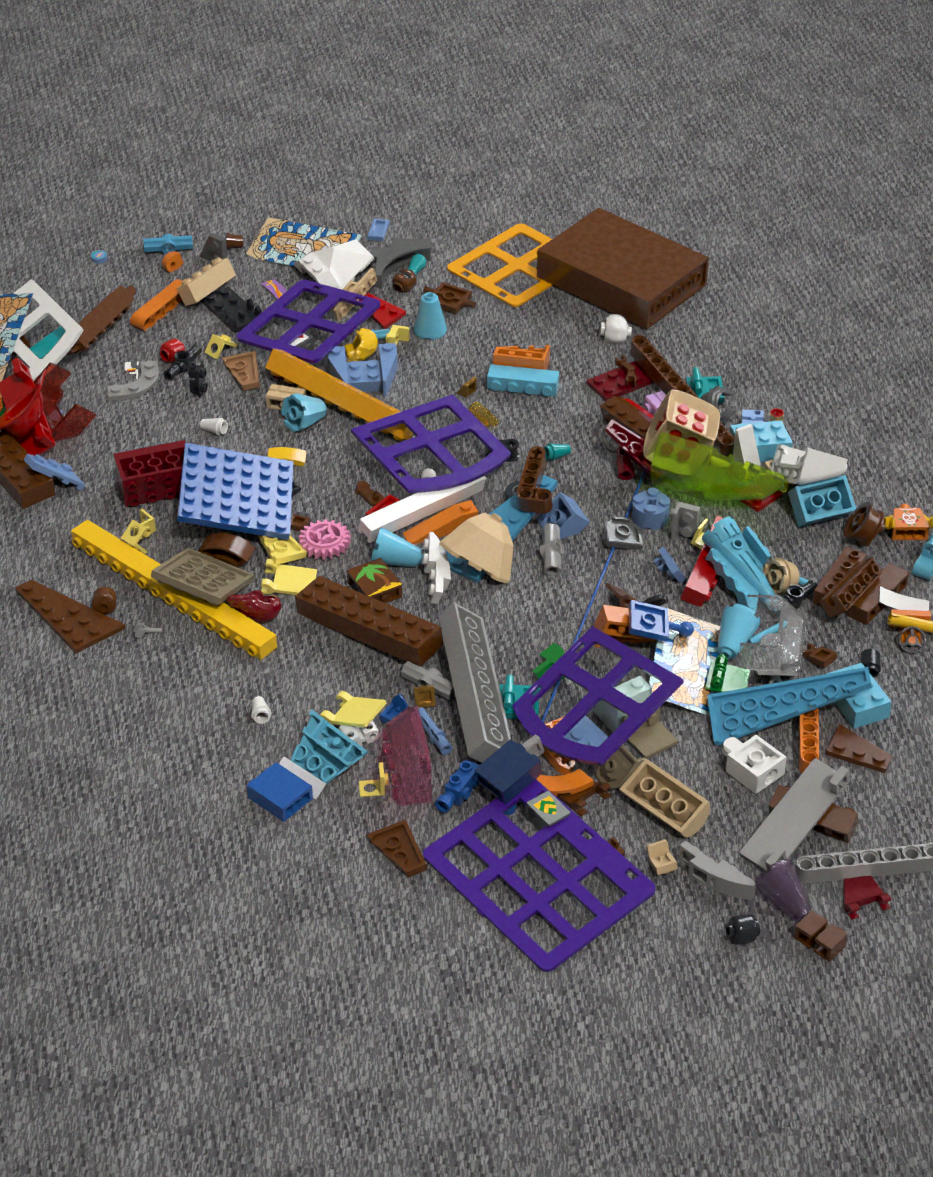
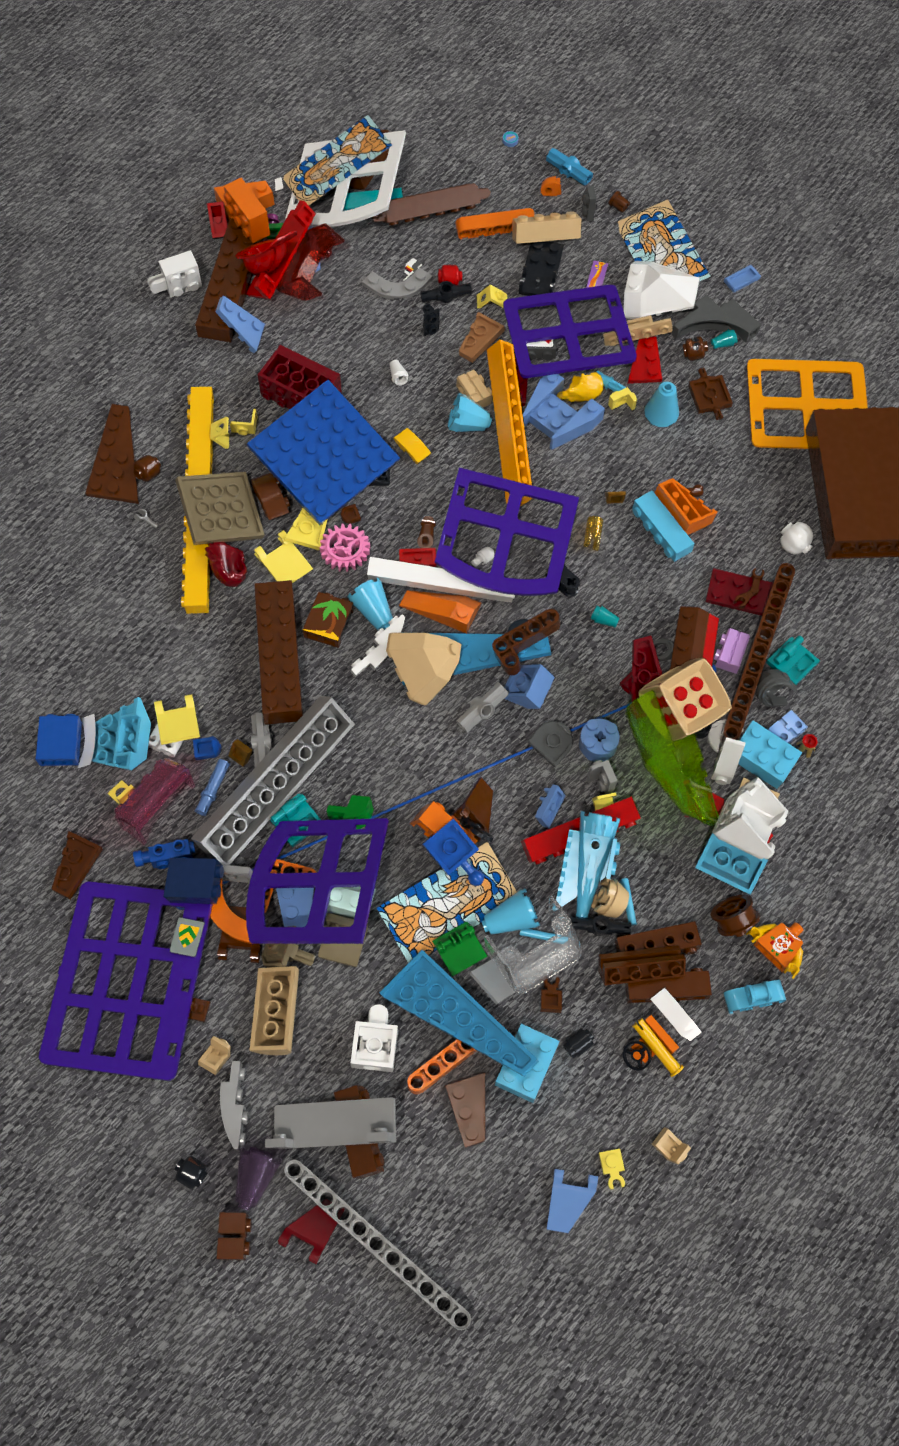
camera: 45 degrees right, 25 degrees up
(260, 710) = (130, 658): white cone -> none

